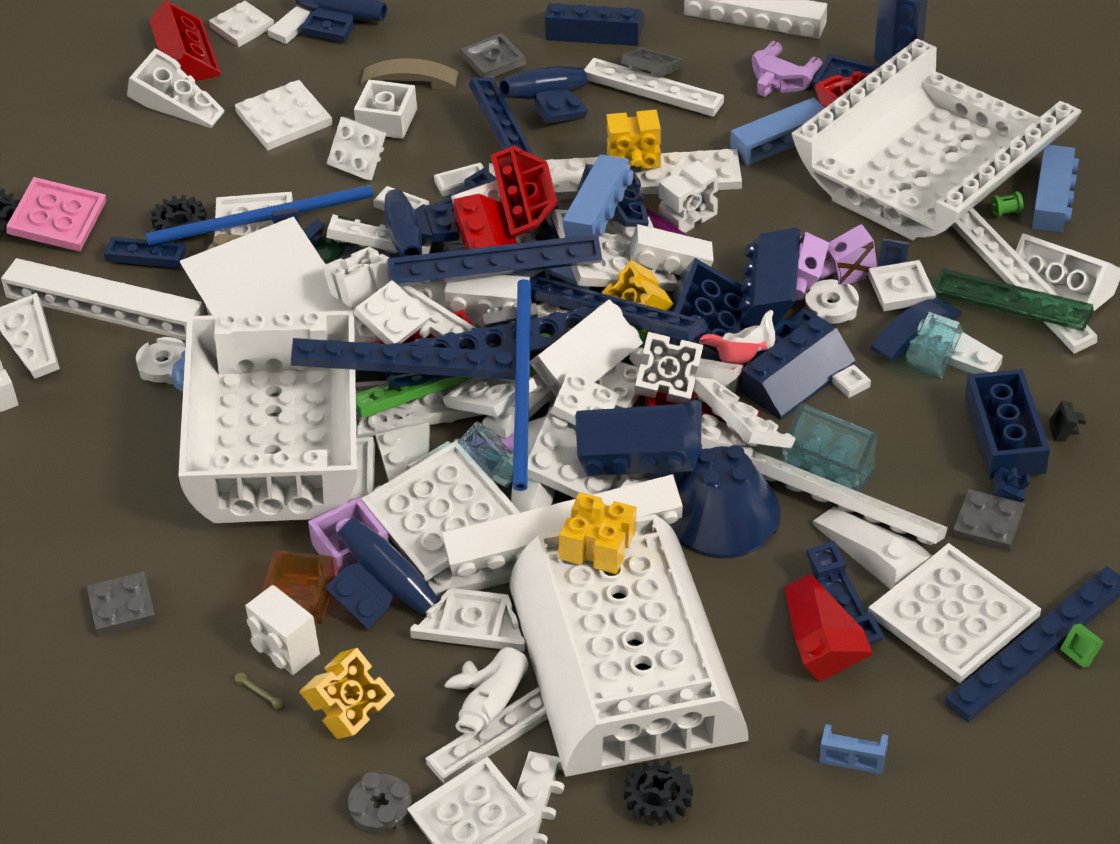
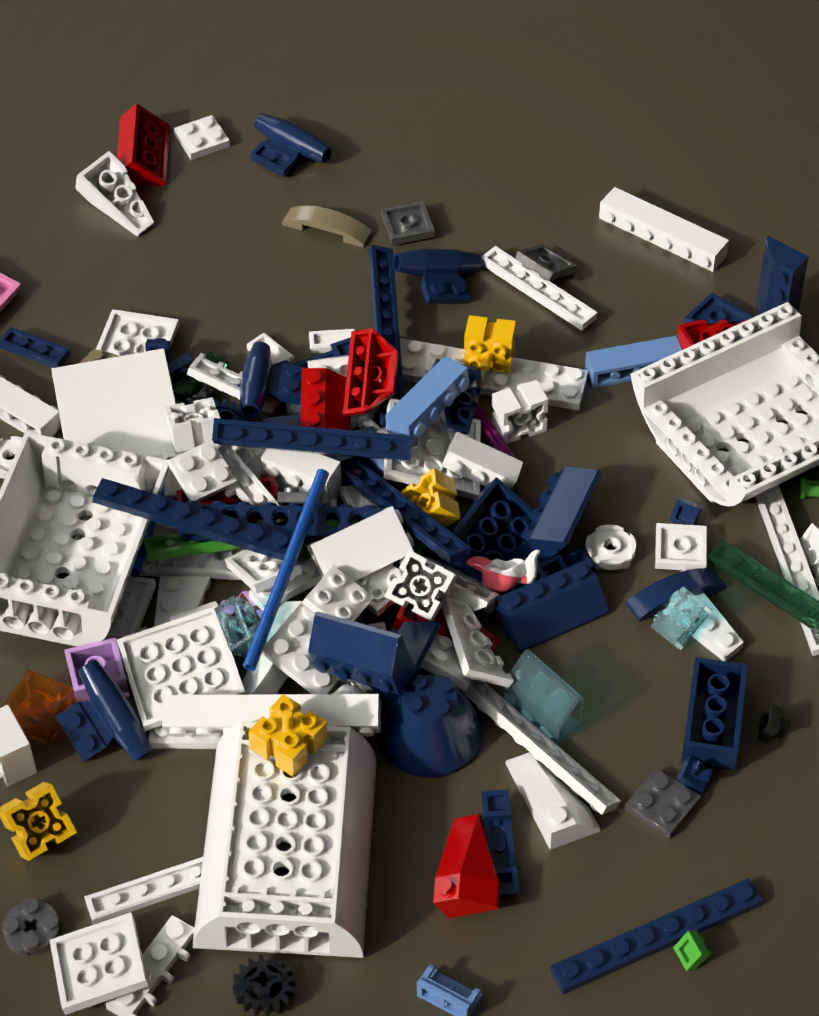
camera: 15 degrees right, 5 degrees up
(177, 213) = (74, 321): black gear -> none
(257, 215) = (140, 336): blue piece -> none
(283, 114) = (203, 238): white plate -> none
(289, 25) = (240, 149): white tile -> none
(356, 148) = (249, 290): white plate -> none
(387, 107) = (289, 255): white brick -> none
(472, 620) = (173, 777): white wing -> none
(493, 688) = (167, 846): white piece -> none
(593, 24) = (510, 211): dark blue slope -> none
(780, 75) = (658, 302): lavender connector -> none
(810, 262) = (598, 508): lavender torso -> none
(850, 256) = (640, 508): lavender torso -> none
(851, 381) = (596, 631): white tile -> none
(954, 612) = (592, 886): white plate -> none

